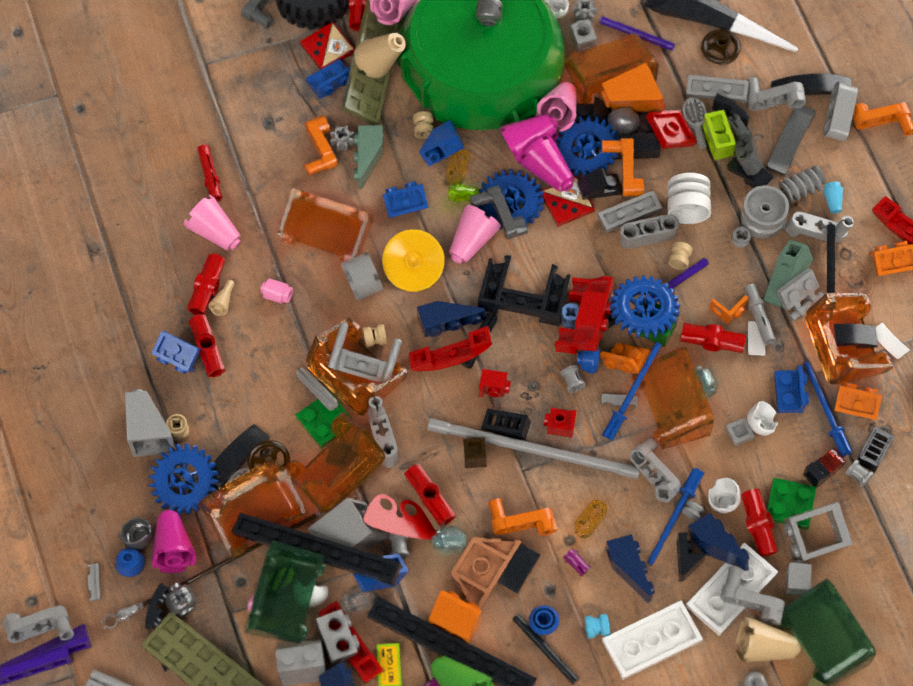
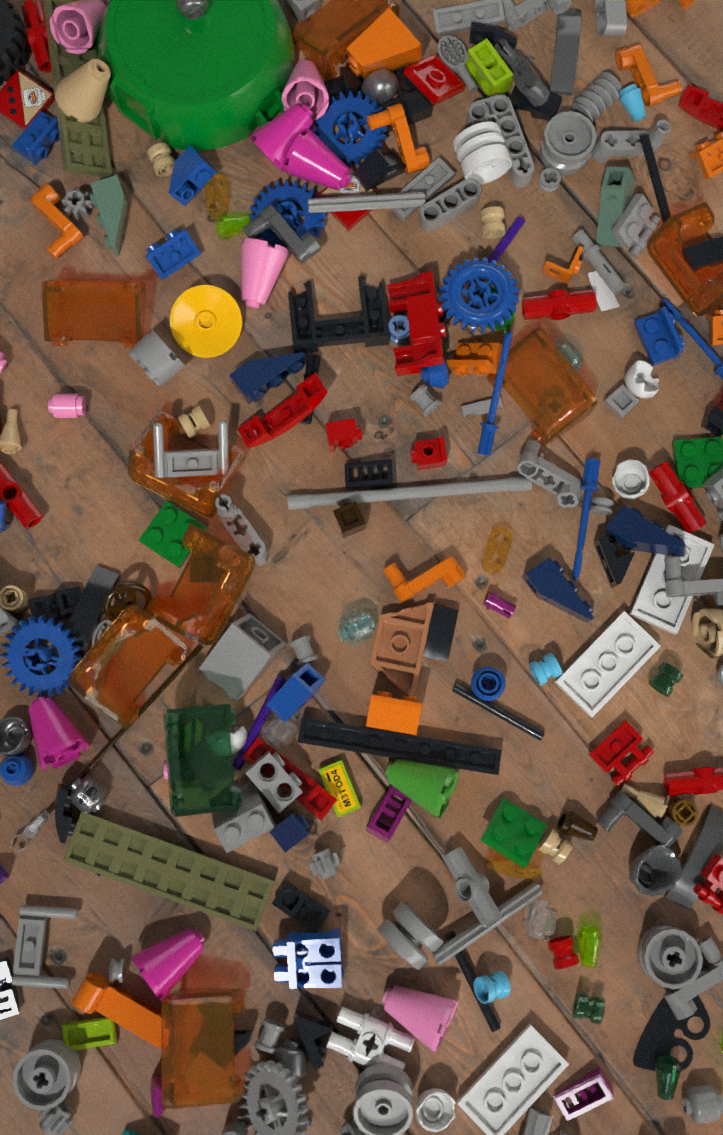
camera: 20 degrees left, 15 degrees up
(212, 444) = (55, 605): none -> black slope
(317, 388) = (152, 504): light grey axle -> none
(334, 553) = (218, 691): black plate -> none
(335, 596) = (259, 721): none -> dark purple bar
(407, 525) = (284, 632): piece -> none
(437, 505) = (304, 573): red piece -> none
(578, 207) = (366, 202): none -> light grey axle
(697, 668) = (665, 679): none -> clear green wheel
(717, 196) = (513, 140): none -> light grey beam
(853, 195) = (636, 60): none -> orange beam

